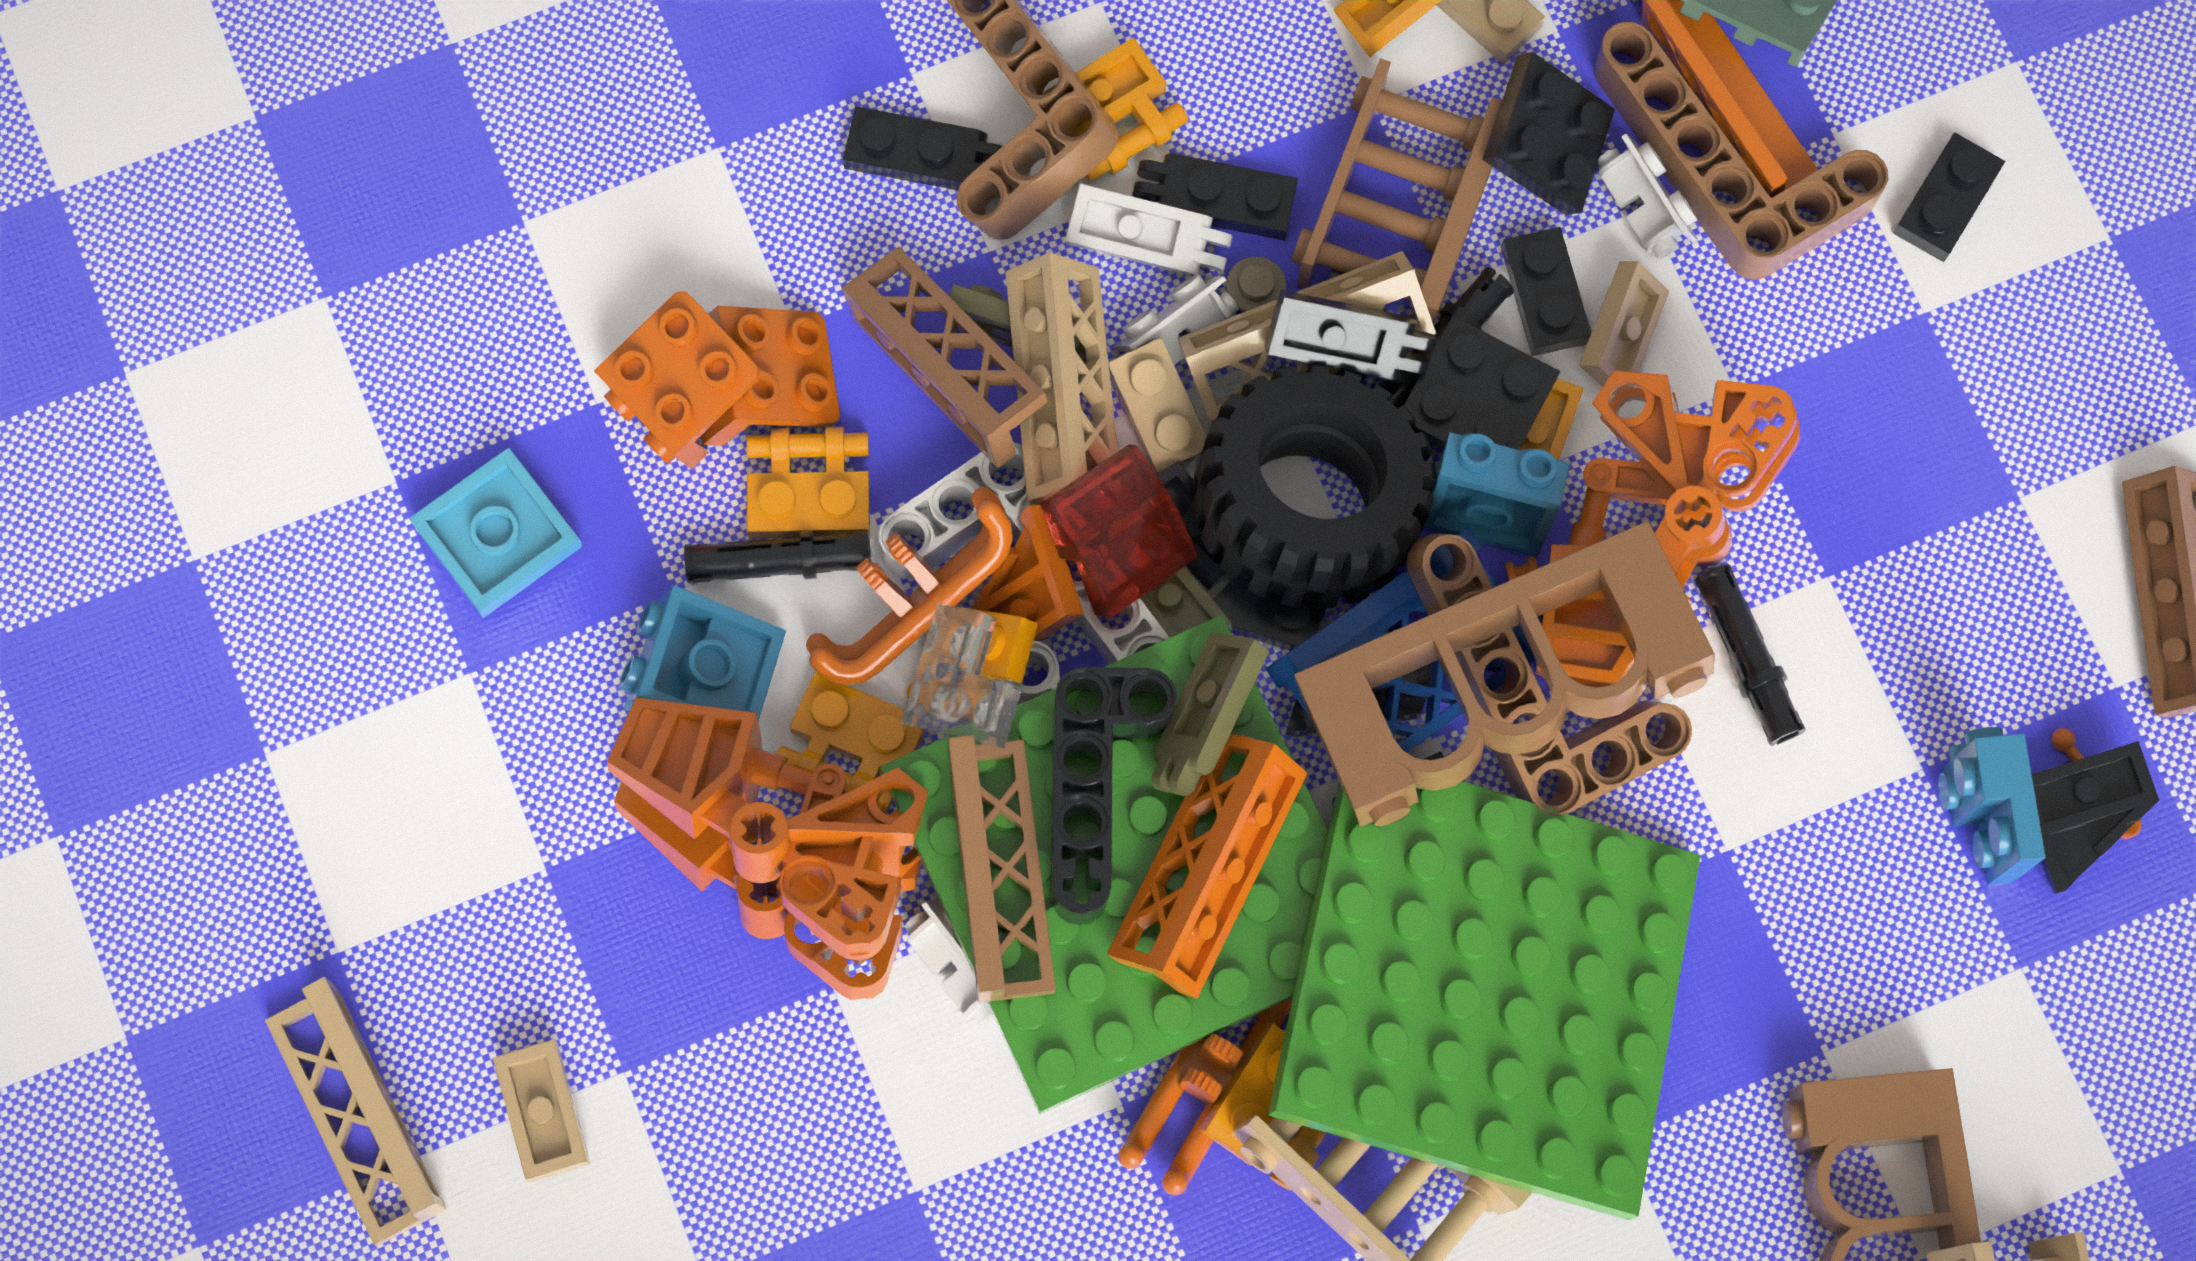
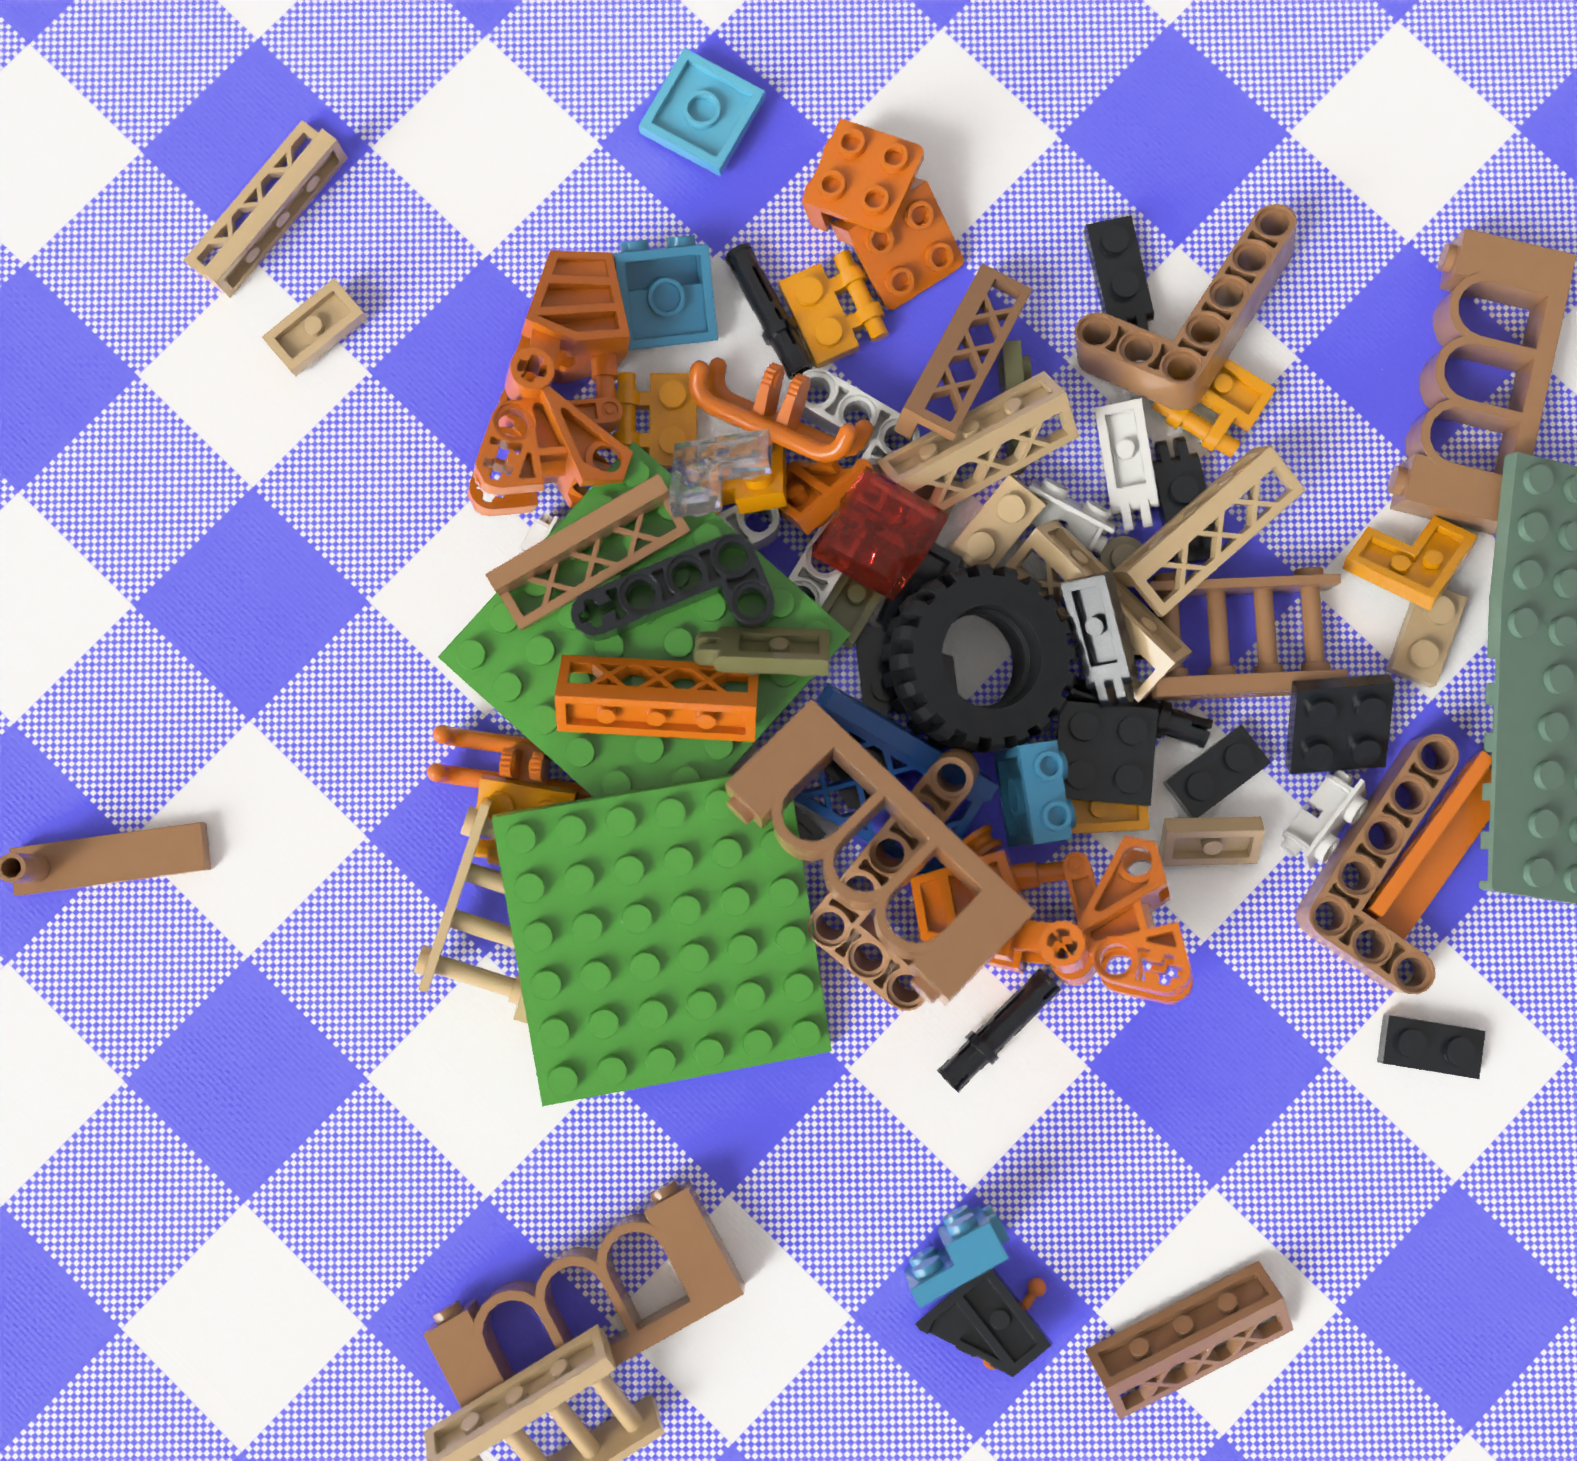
camera: 70 degrees right, 10 degrees up
(1249, 180) = (1198, 515): none -> tan fence

